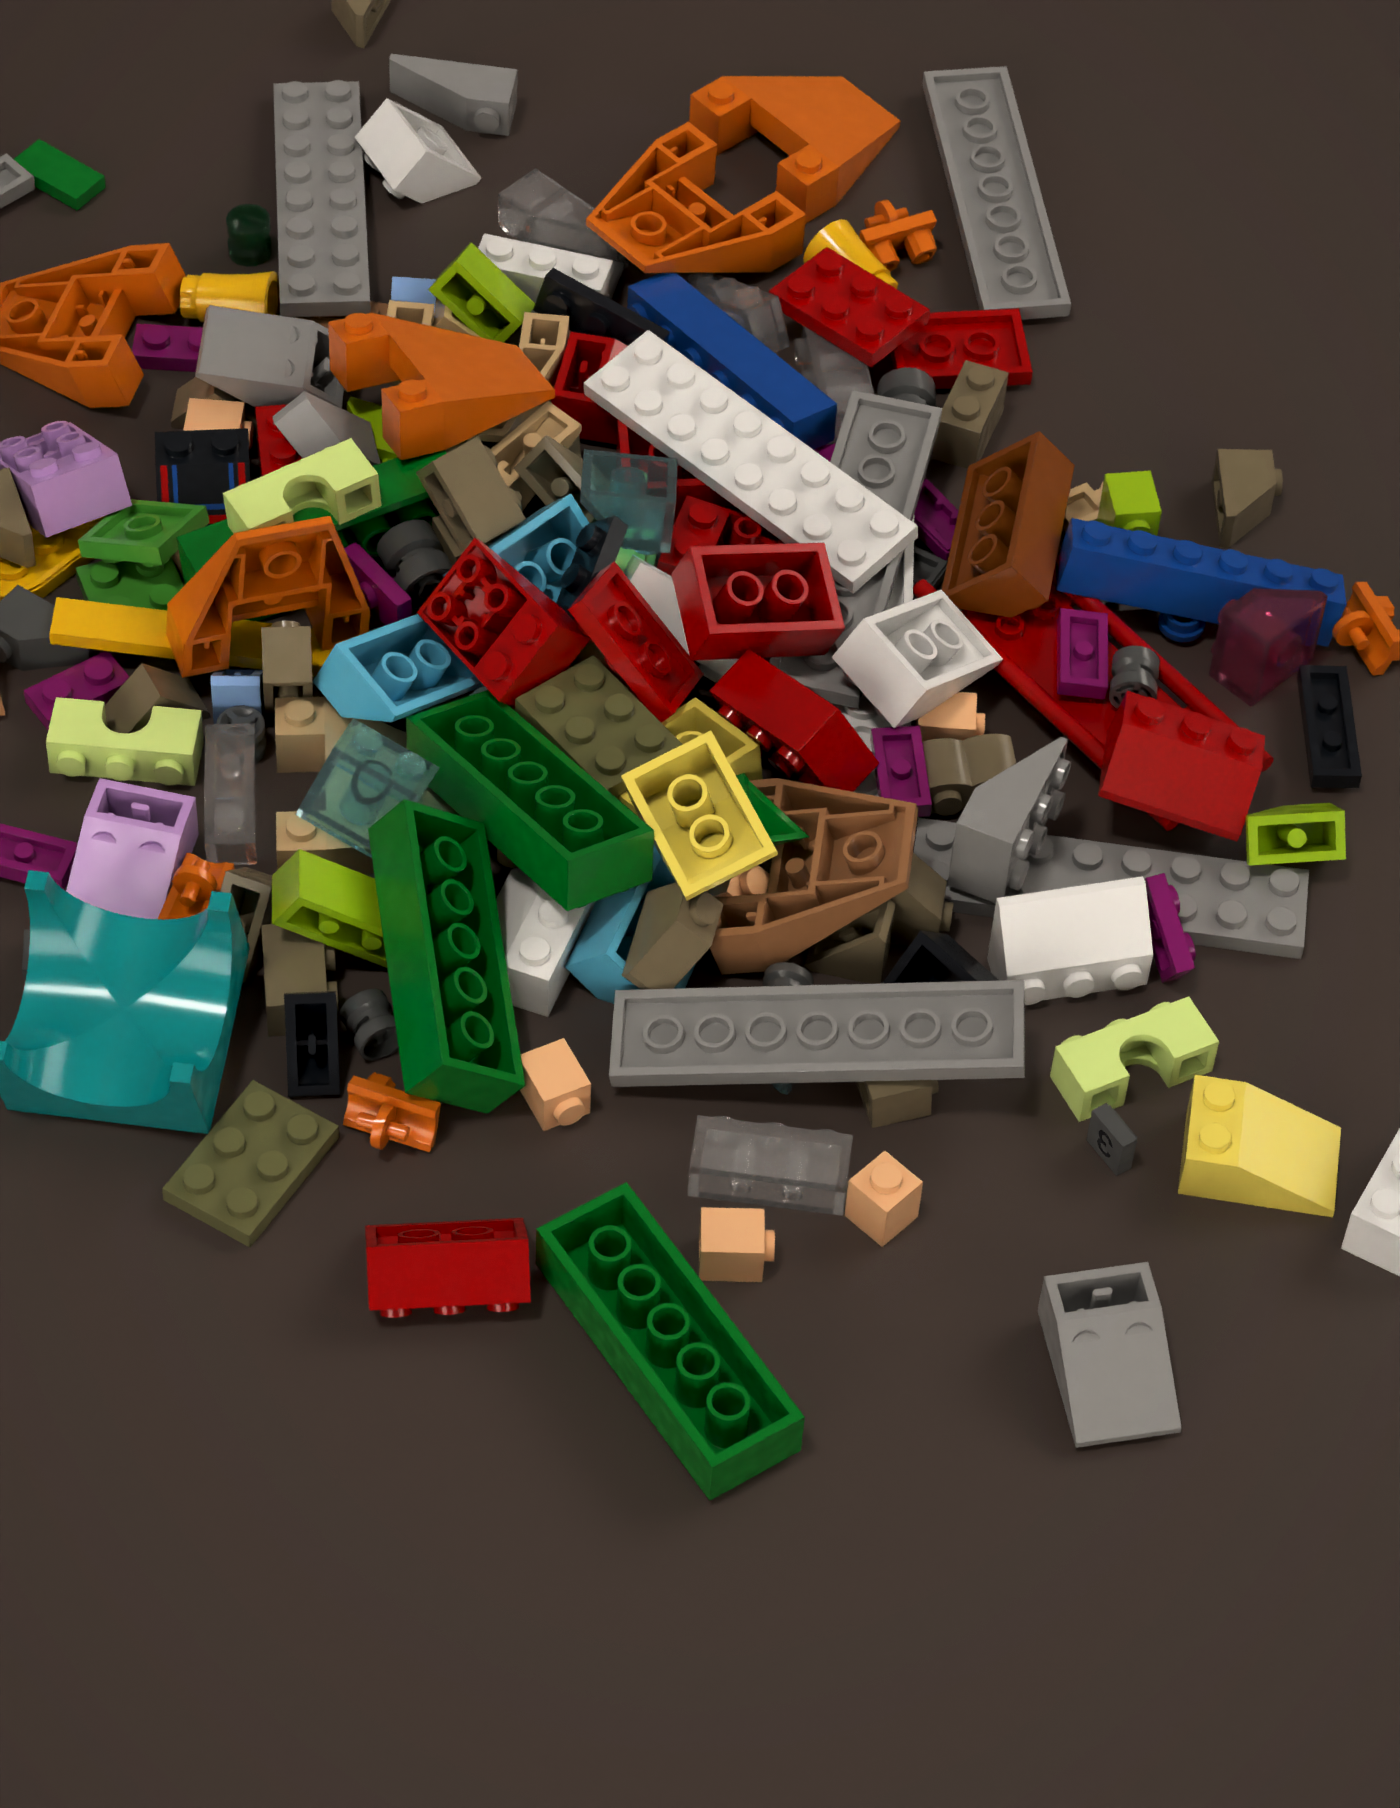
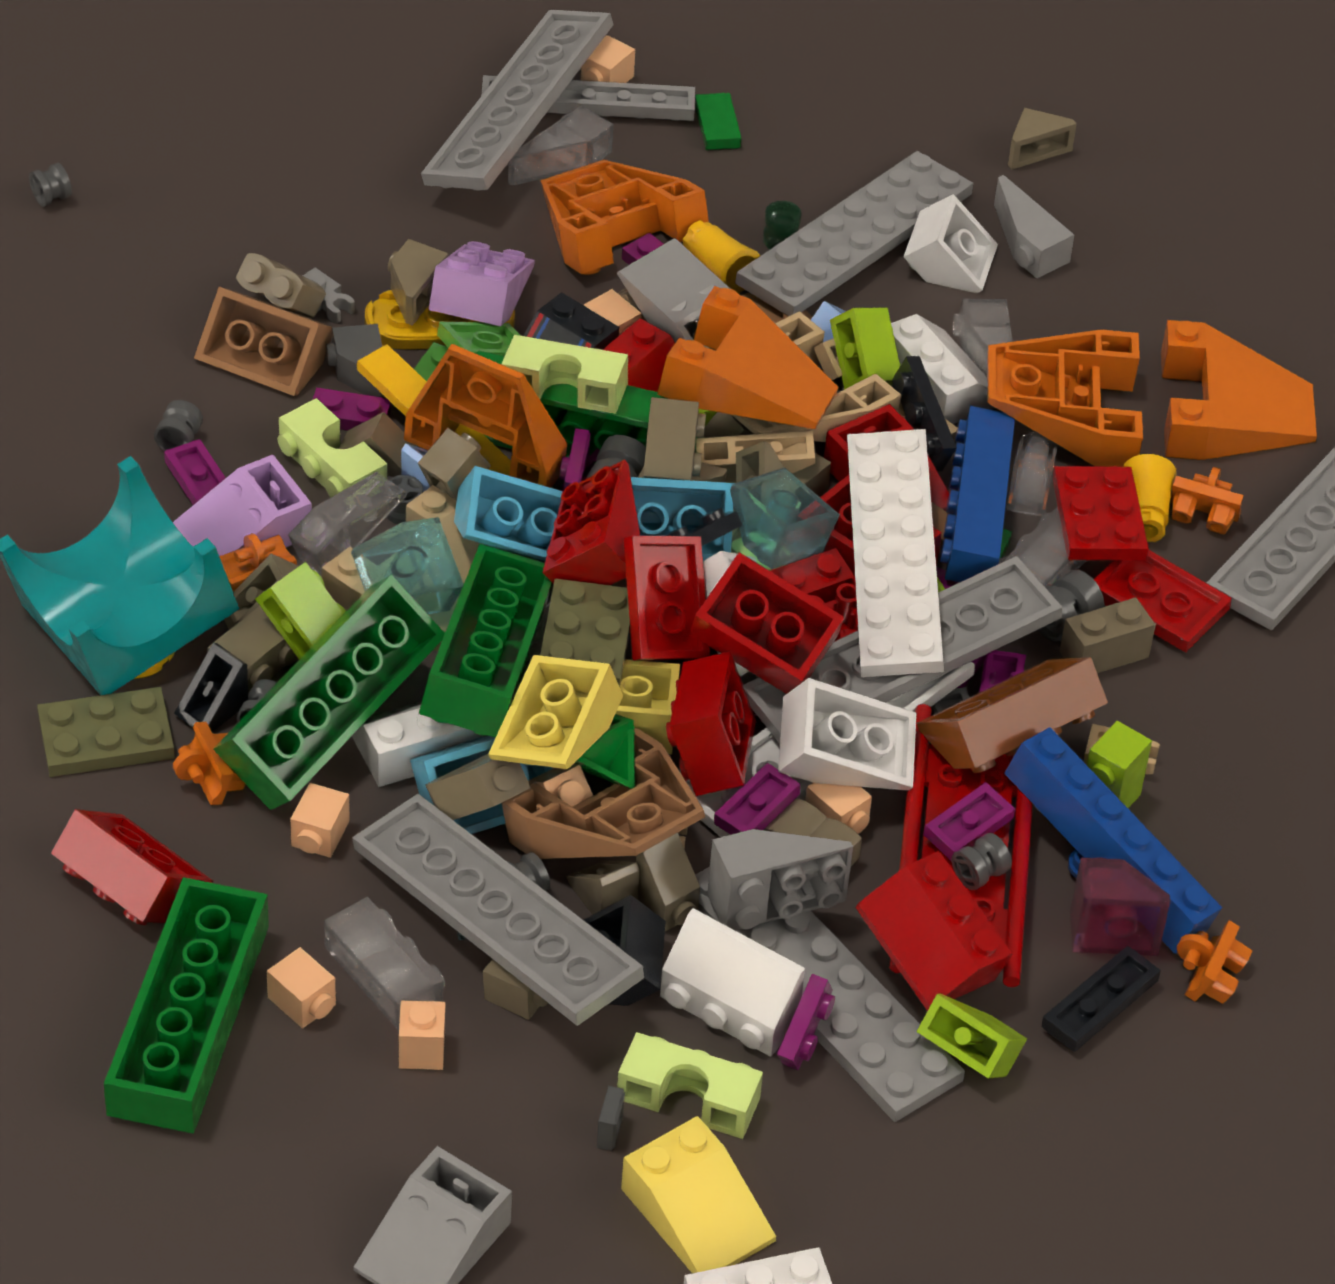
camera: 45 degrees right, 5 degrees down
(316, 424) = (647, 353): light grey slope -> none
(1243, 491) = (1237, 817): dark tan slope -> none

